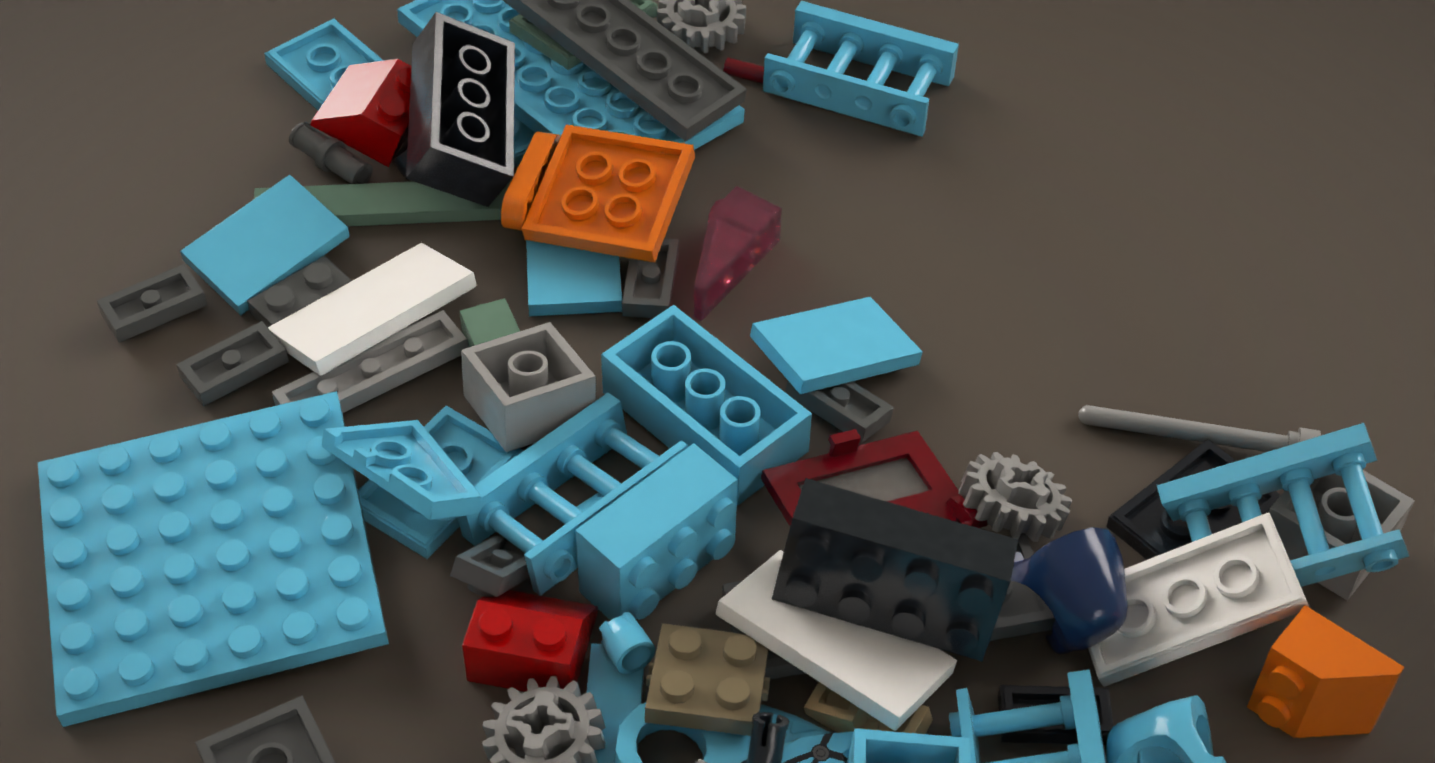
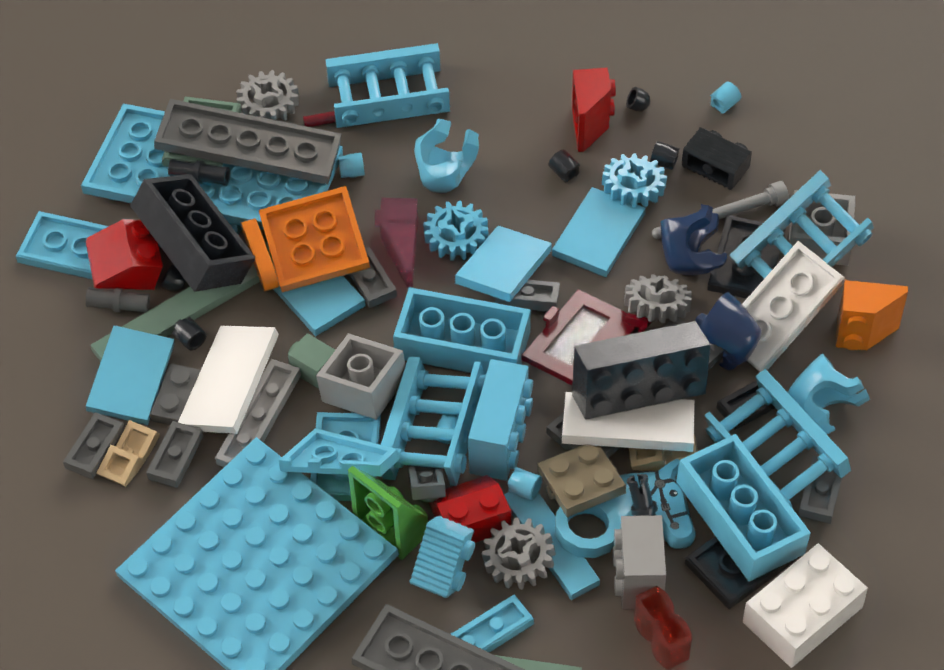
camera: 30 degrees left, 5 degrees up
(169, 341) = (129, 454): none -> tan slope
(377, 233) = (189, 333): none -> black hose
(412, 572) = (386, 511): none -> bright green slope
(427, 675) = (442, 557): none -> medium azure brick
(539, 54) = (200, 171): none -> black pin
(740, 138) = (351, 165): none -> medium azure hose
(807, 273) = (455, 230): none -> medium azure gear
(846, 190) = (441, 169): none -> medium azure piece
(1004, 373) = (598, 232): none -> medium azure tile
(1019, 266) = (564, 165): none -> black hose
(1101, 329) = (634, 180): none -> medium azure gear
(1107, 206) = (591, 104): none -> red slope
(1107, 452) = (683, 240): none -> dark blue piece
(1172, 319) = (665, 155): none -> black hose
(1188, 235) = (638, 99): none -> black hinge
(1245, 357) = (716, 158): none -> black brick
(1318, 287) = (725, 97): none -> medium azure hose

